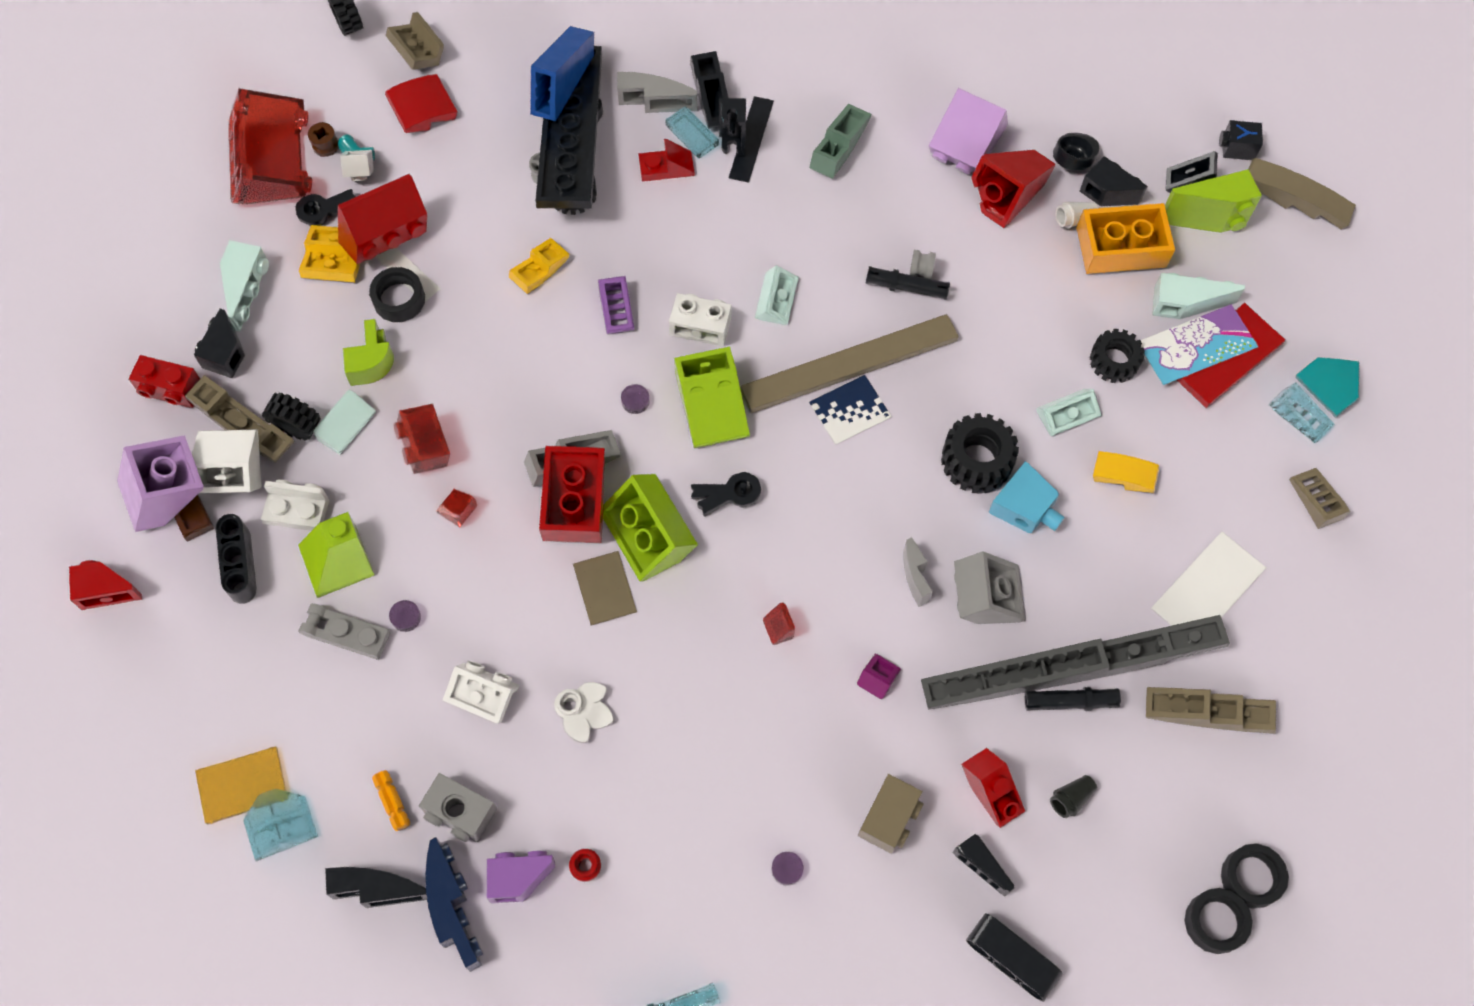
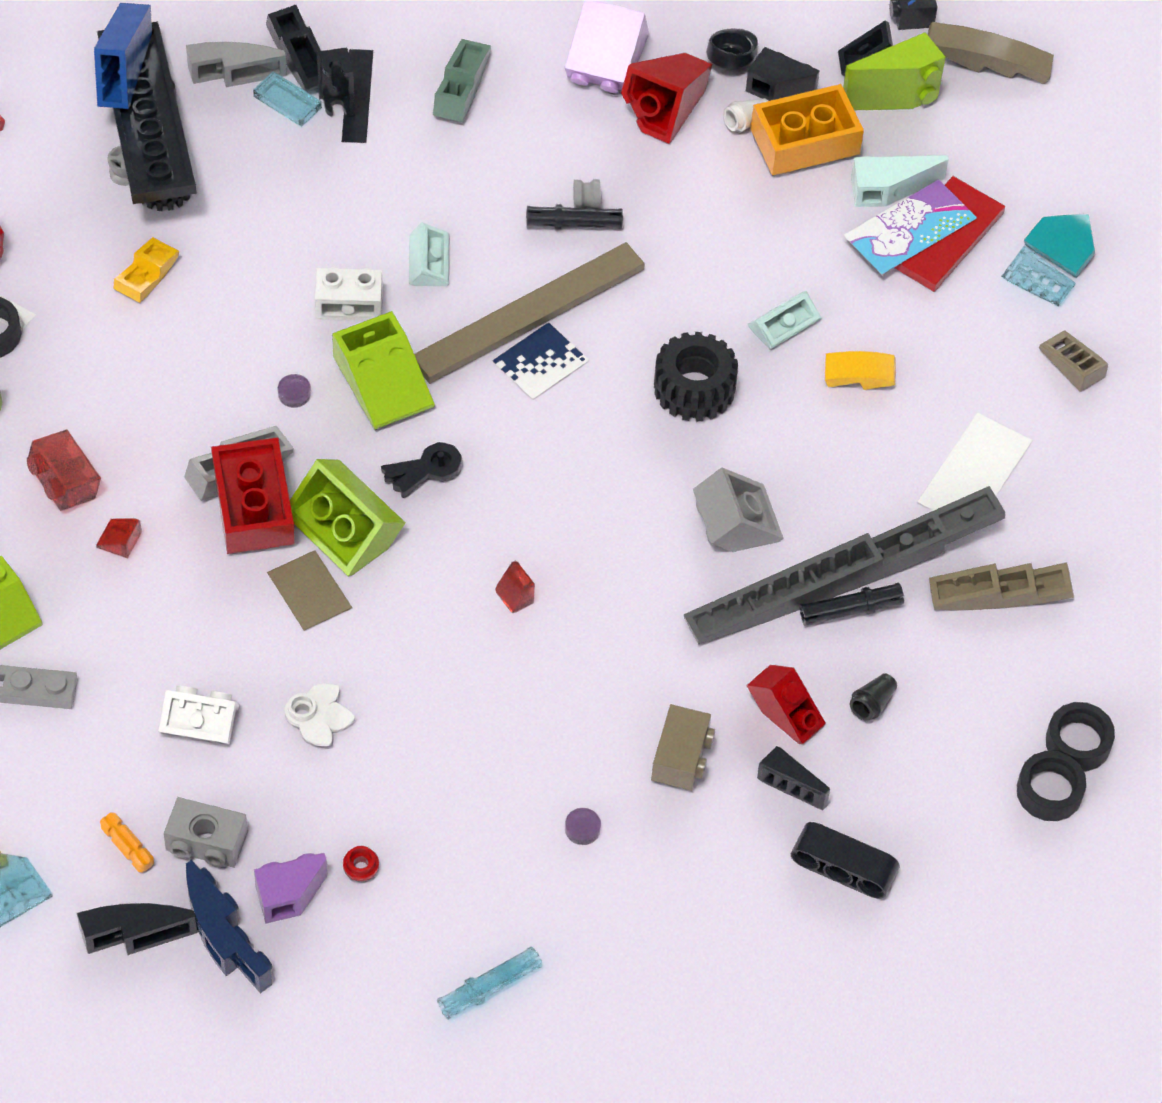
camera: 15 degrees left, 10 degrees down
(405, 615) = (90, 657): clear purple tile -> none
(610, 284) = (238, 274): medium lavender slope -> none
(666, 164) = (270, 136): red slope -> none
(878, 676) = (636, 622): magenta slope -> none
(915, 565) = (649, 502): light grey slope -> none
(1027, 501) = (759, 417): medium azure torso -> none
(1122, 342) = (824, 238): black tyre -> none

